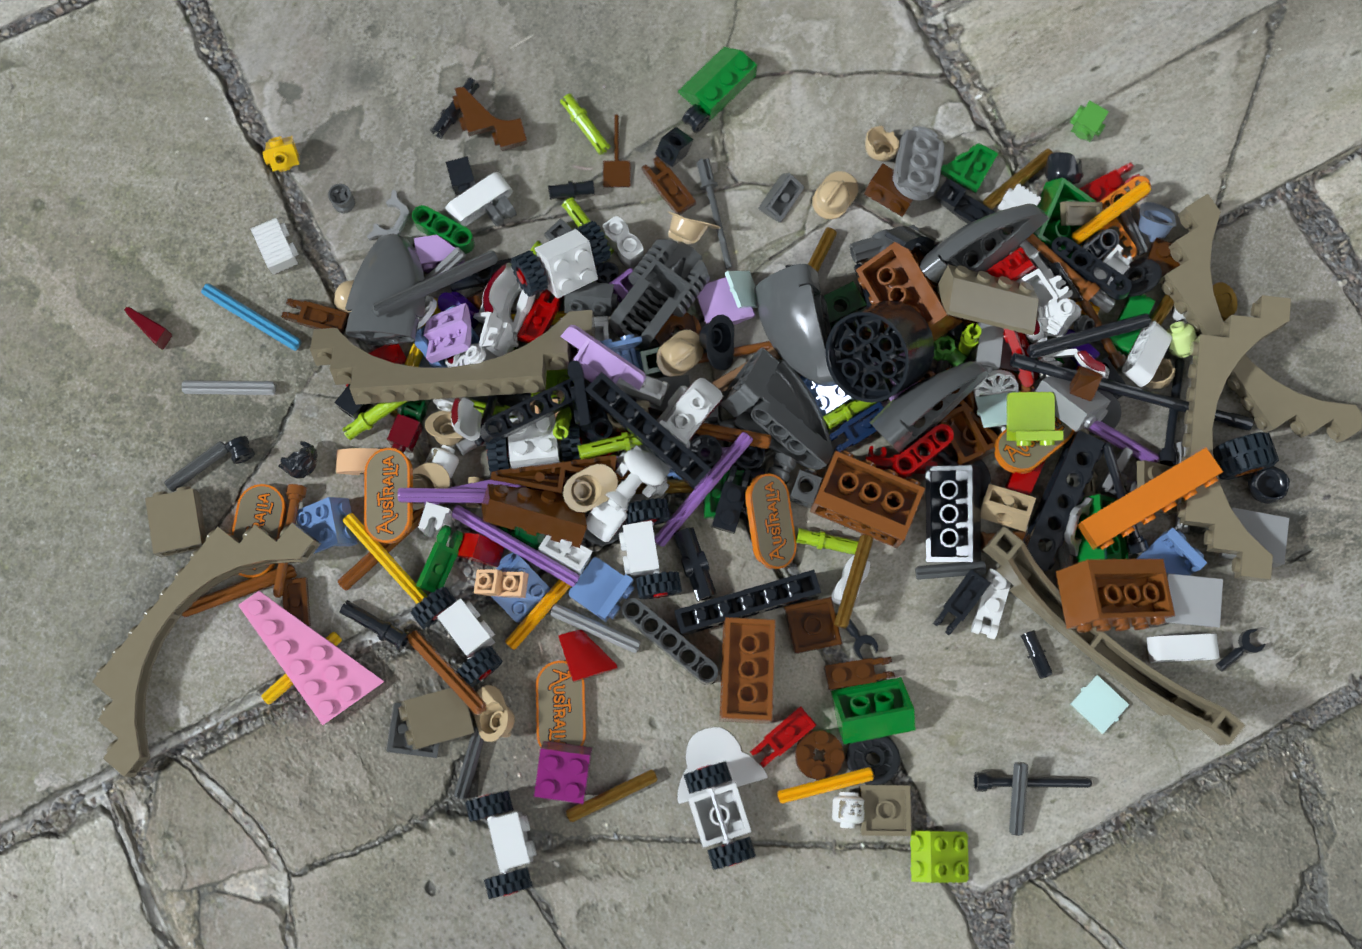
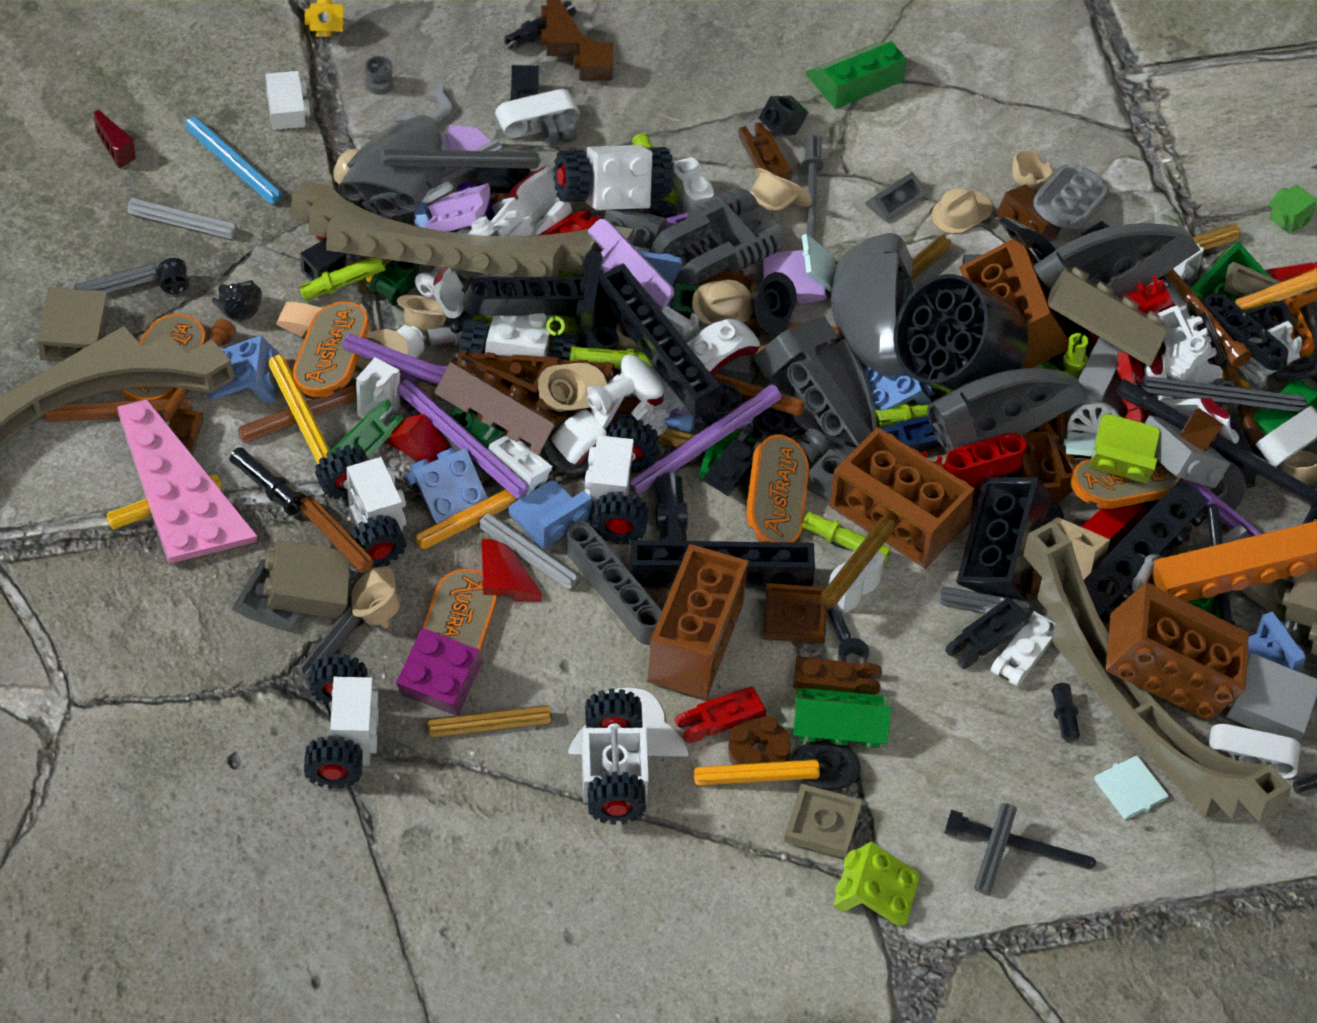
camera: 15 degrees right, 25 degrees down
(316, 315) = (299, 169): reddish brown hinge -> none
(404, 433) = (376, 303): dark red brick -> none
(436, 221) = (471, 113): green beam -> none
(501, 584) = (428, 461): light nougat slope -> none
(571, 189) = (653, 130): black pin -> none
(580, 117) = (682, 66): lime pin -> none
(616, 173) = (708, 129): reddish brown piece -> none
(695, 118) = (818, 98): black wheel -> none
(848, 809) = (777, 804): white head -> none
(970, 167) = (1142, 211): green wing -> none
(1063, 165) = (1249, 235): black hair -> none

